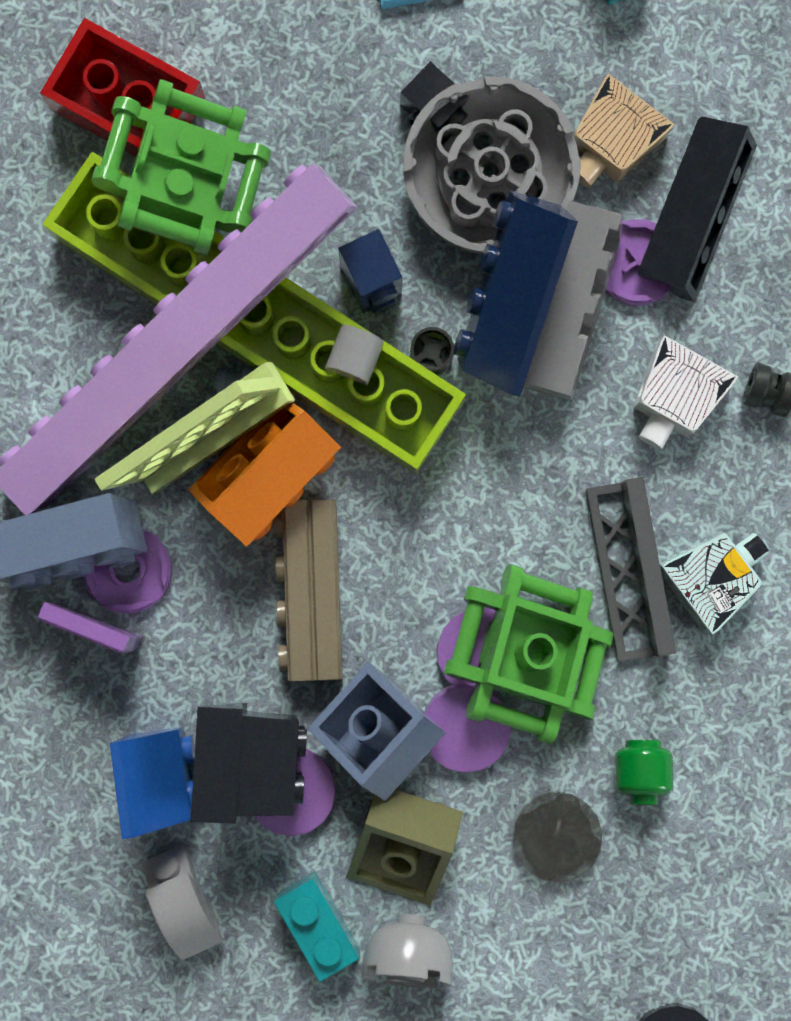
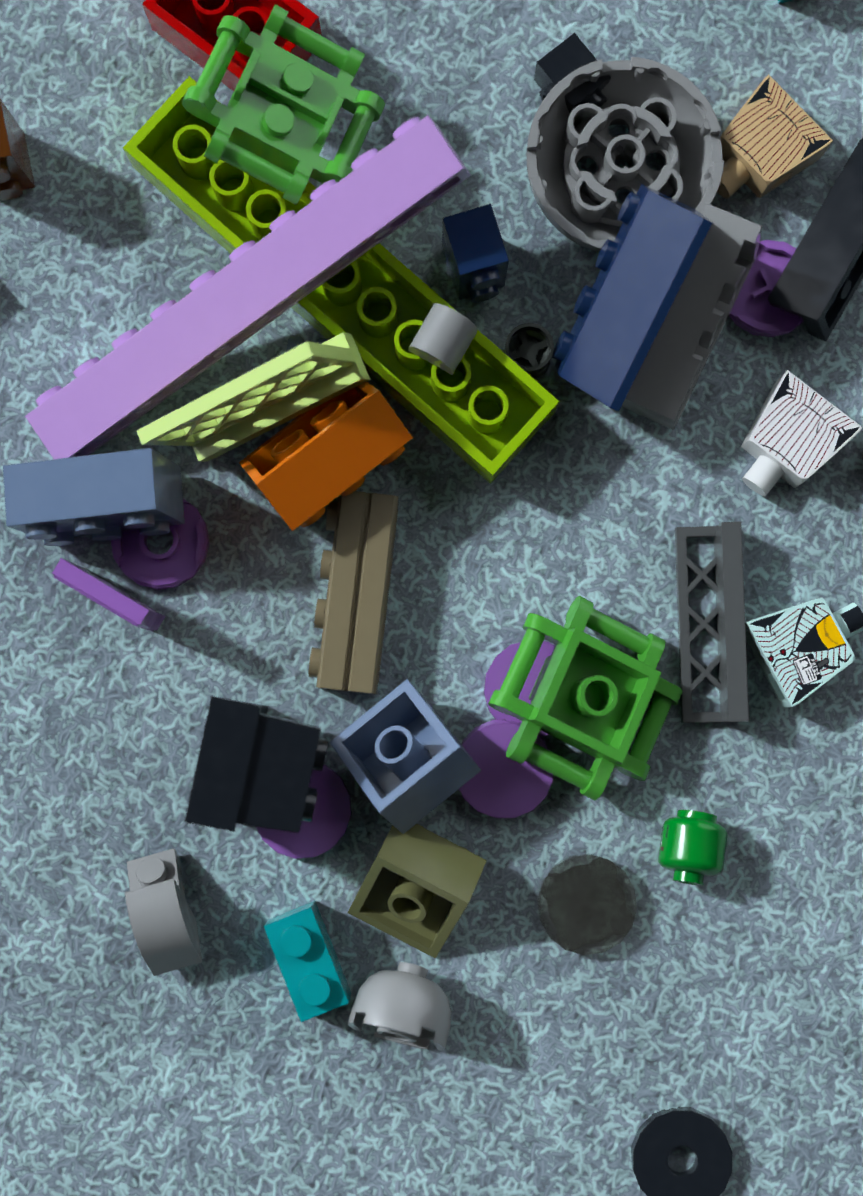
camera: 15 degrees right, 0 degrees up
(152, 780) = (149, 772): blue slope -> none

